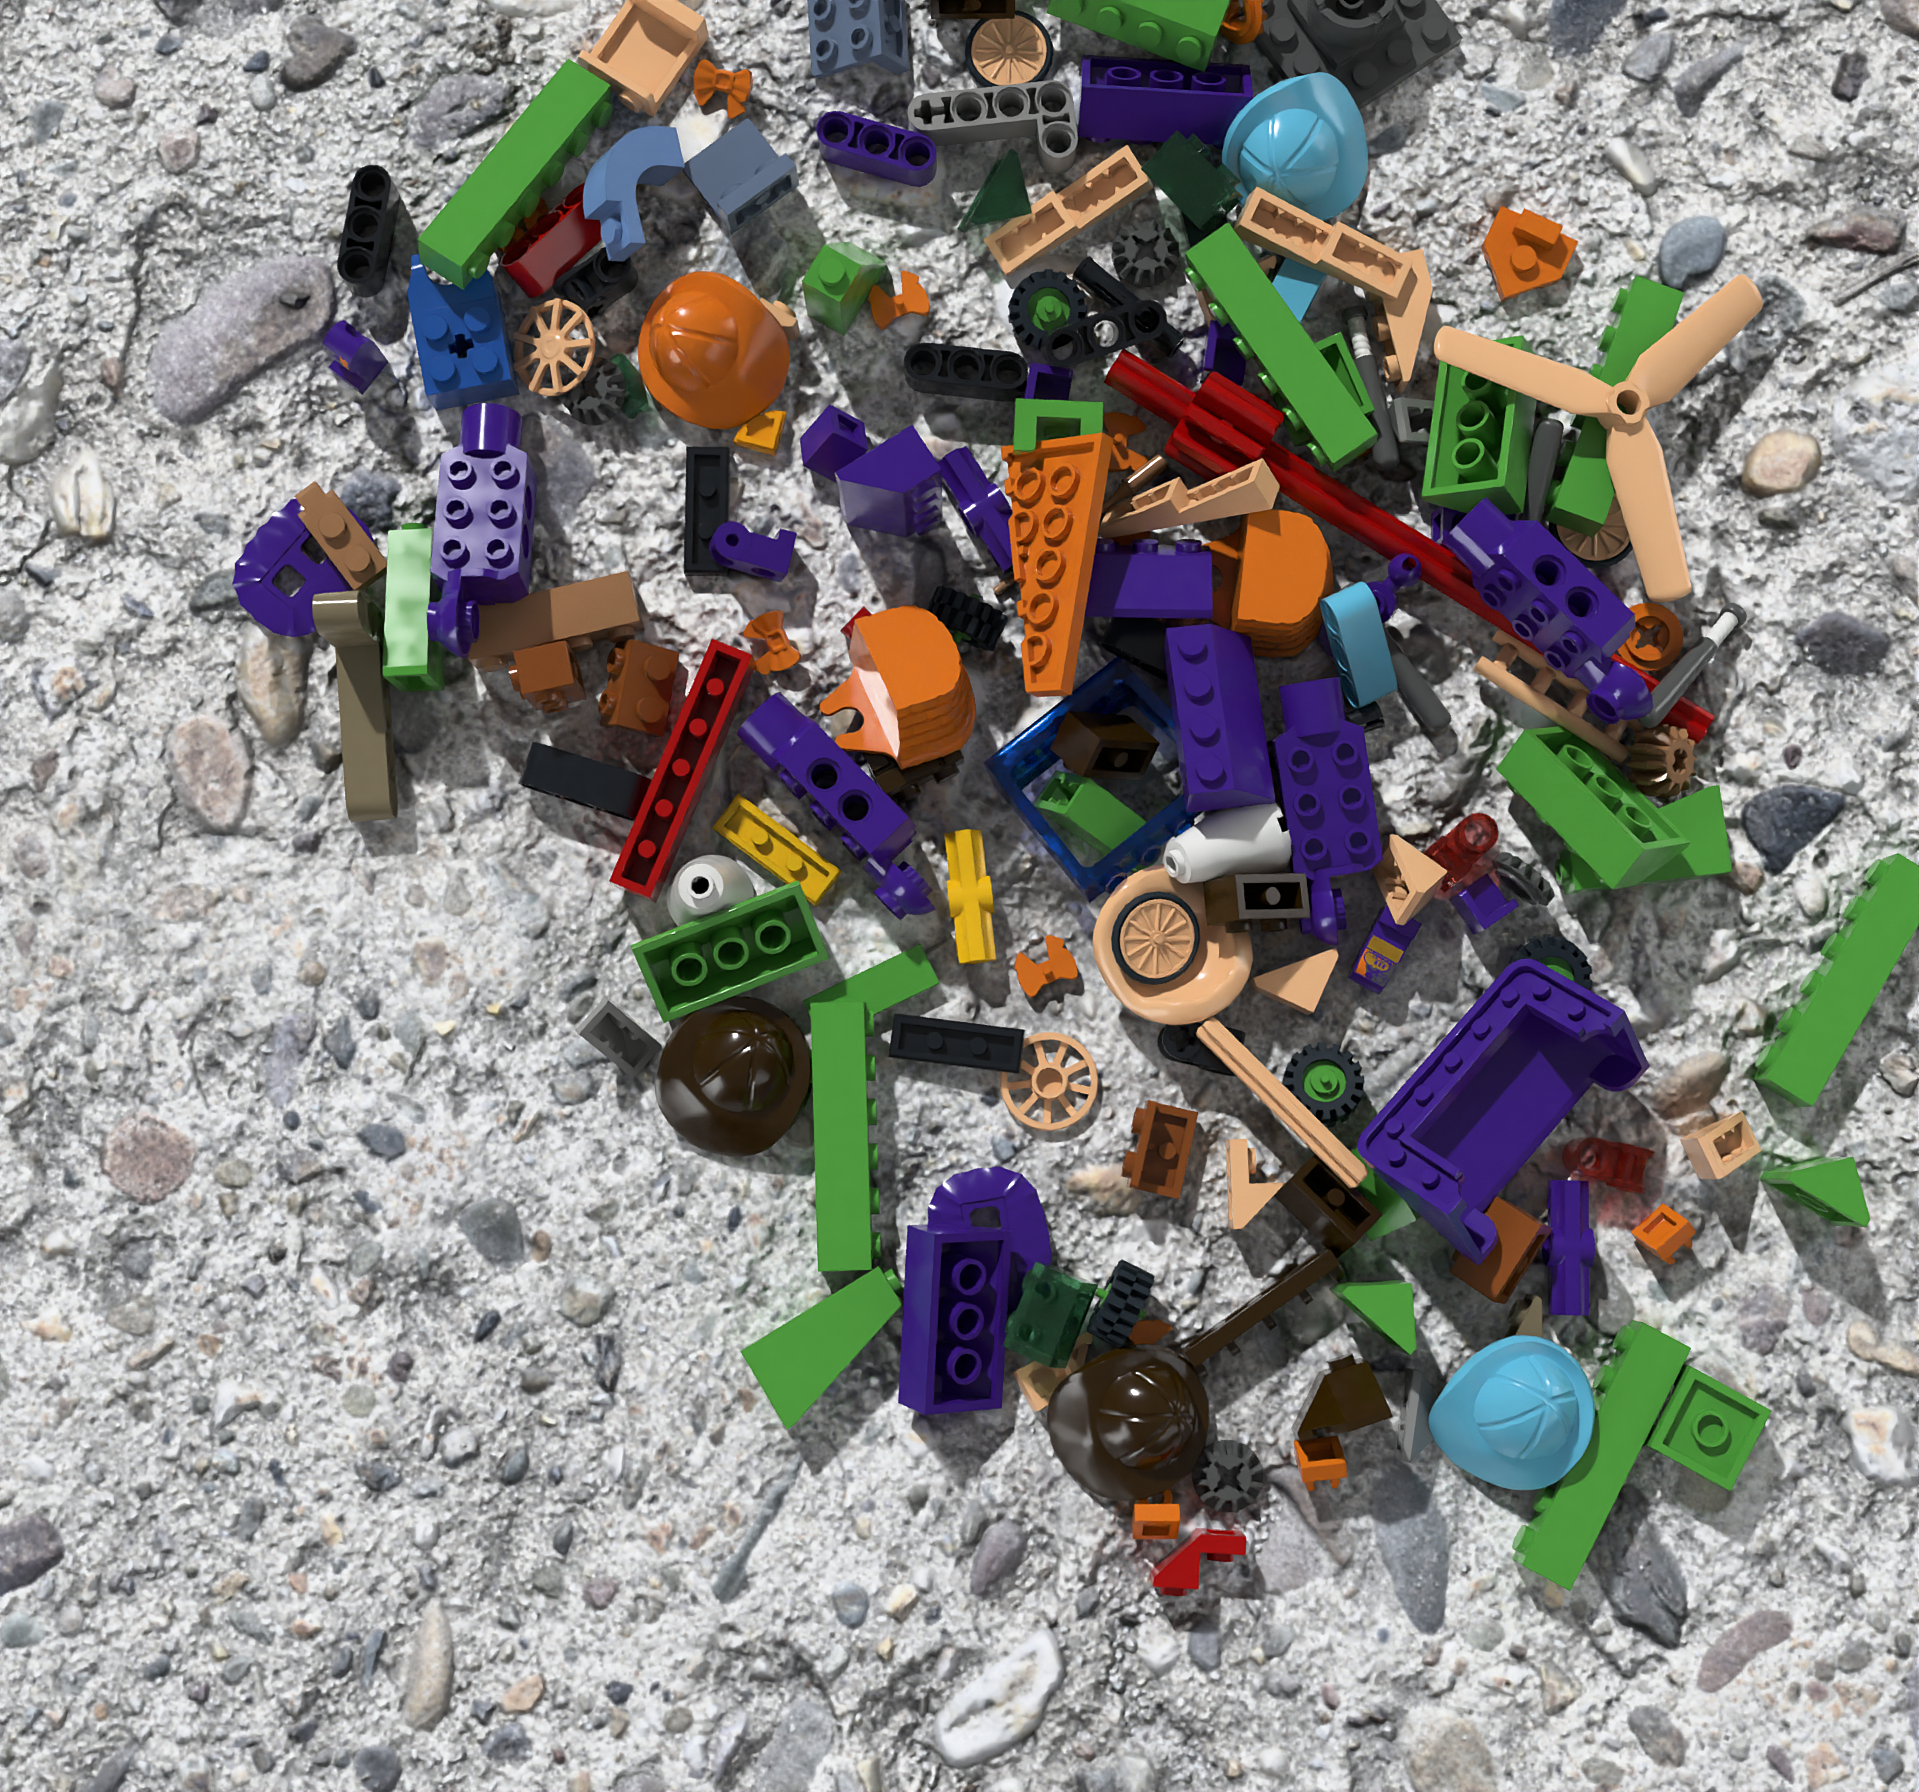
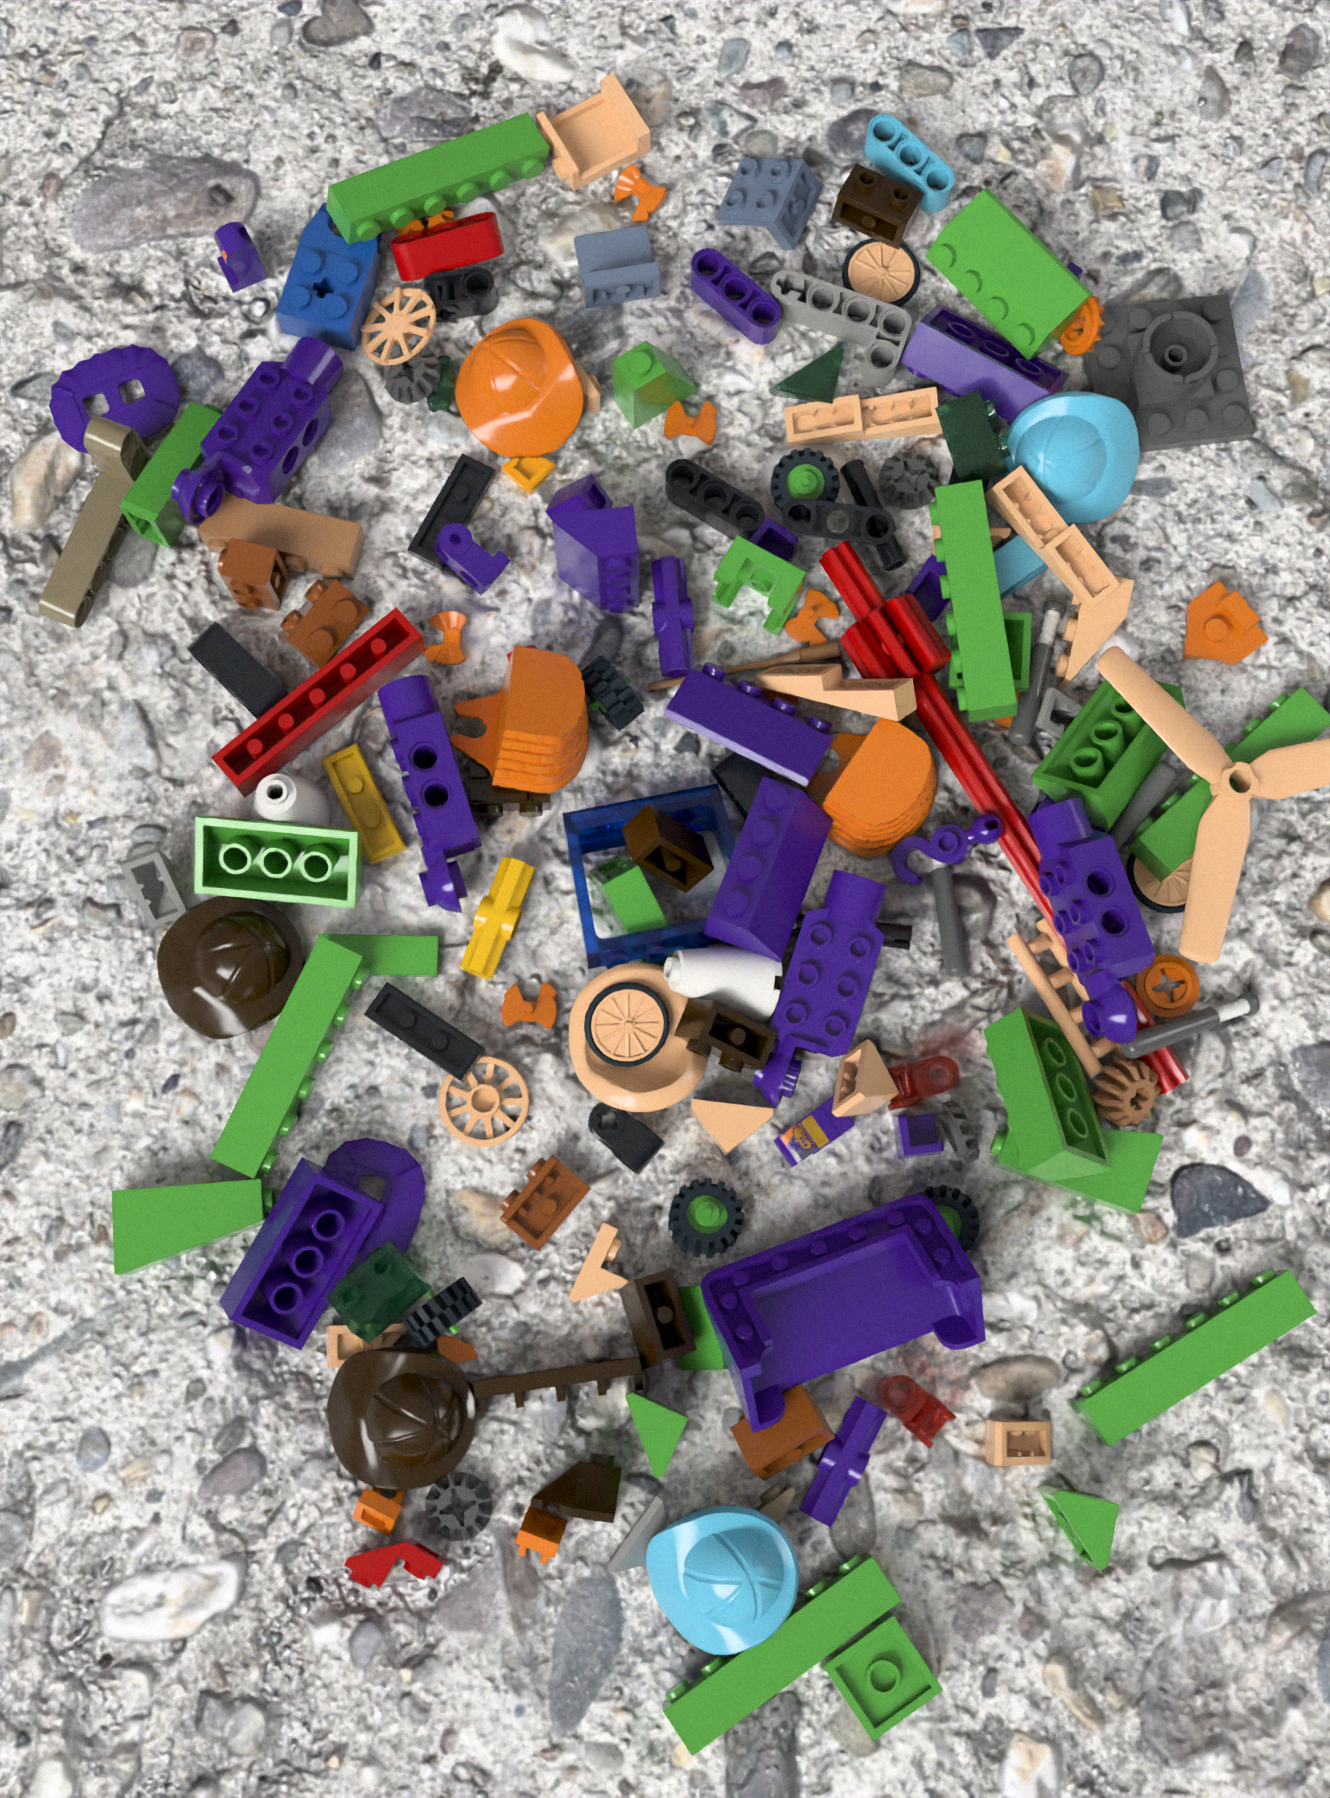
camera: 25 degrees right, 5 degrees down
(341, 537) = (152, 389): medium nougat hinge -> none
(366, 212) = (304, 154): black beam -> none
(640, 157) = (536, 210): medium blue arch -> none
(1053, 546) = (706, 662): orange wing -> none
(1282, 1102) = (661, 1213): light nougat axle -> none
(1358, 644) = (918, 870): medium azure beam -> none
(1664, 1233) = (930, 1491): orange tile -> none

